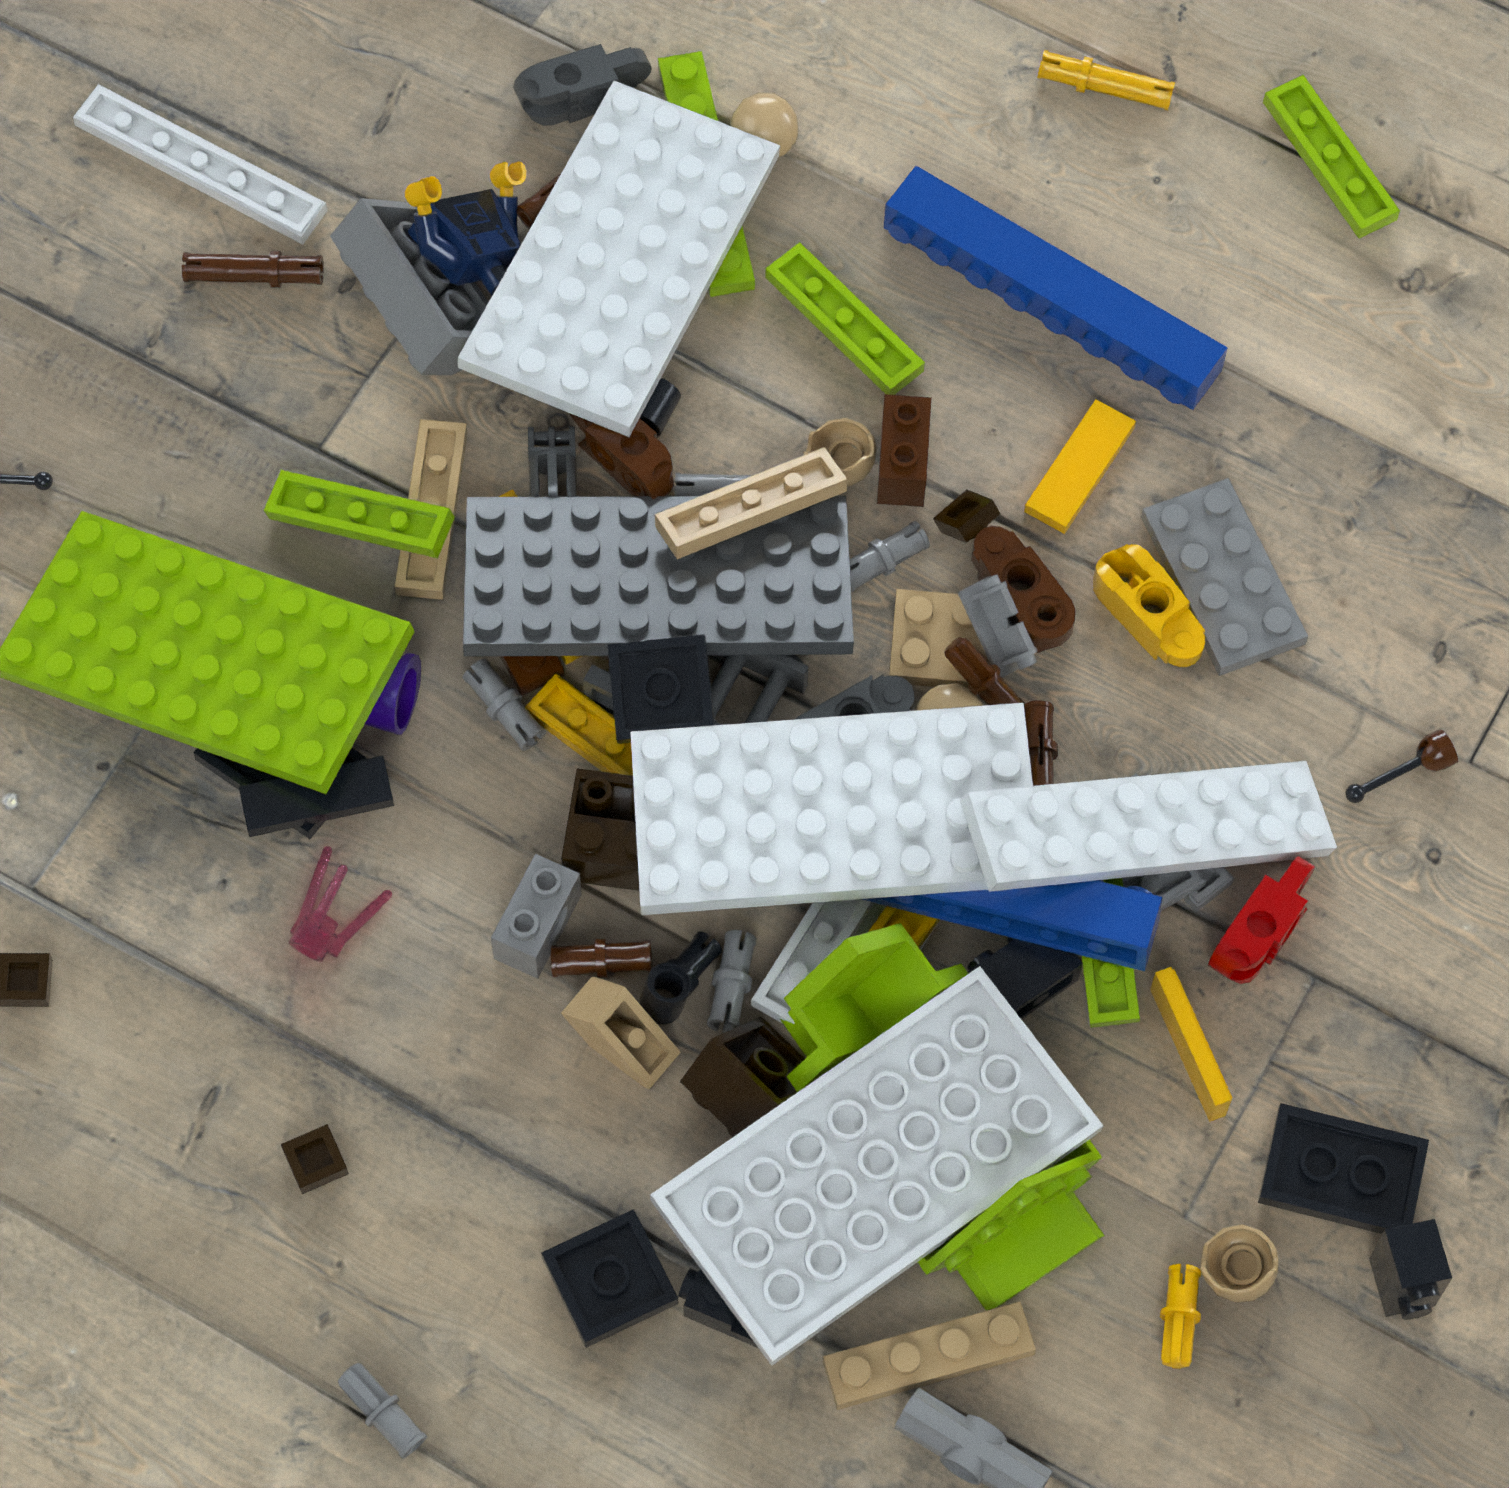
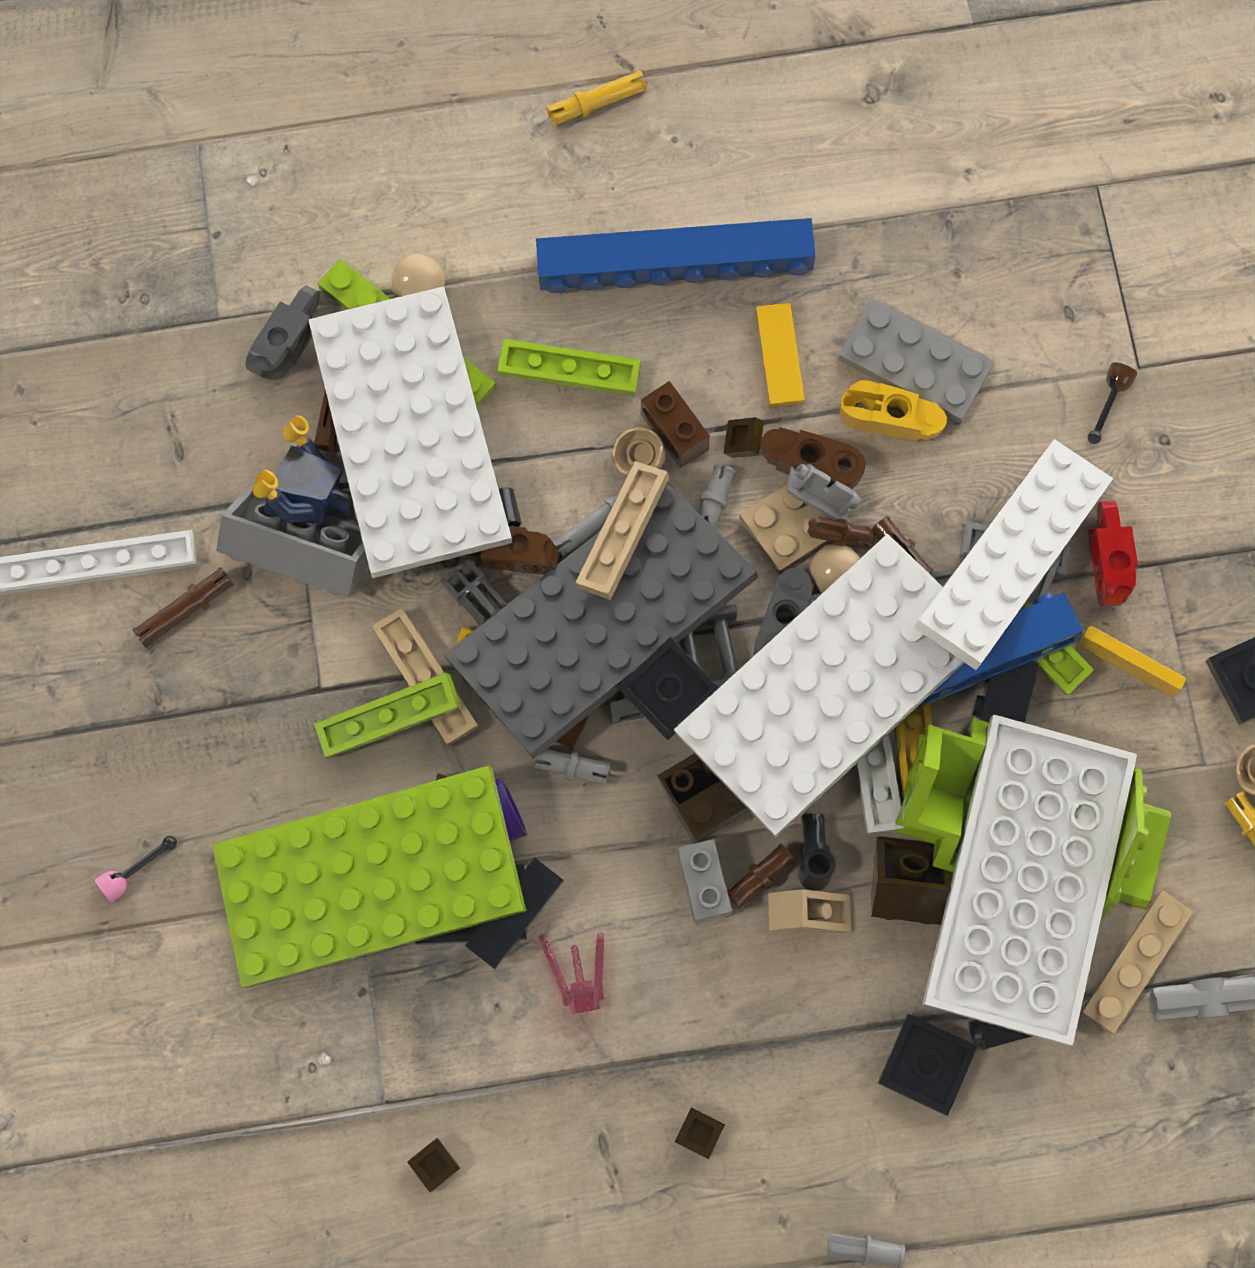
camera: 35 degrees left, 10 degrees up
(581, 725) = (631, 742): yellow tile -> none
(731, 980) = (846, 830): light grey pin -> none
(1331, 156) = (766, 50): lime plate -> none

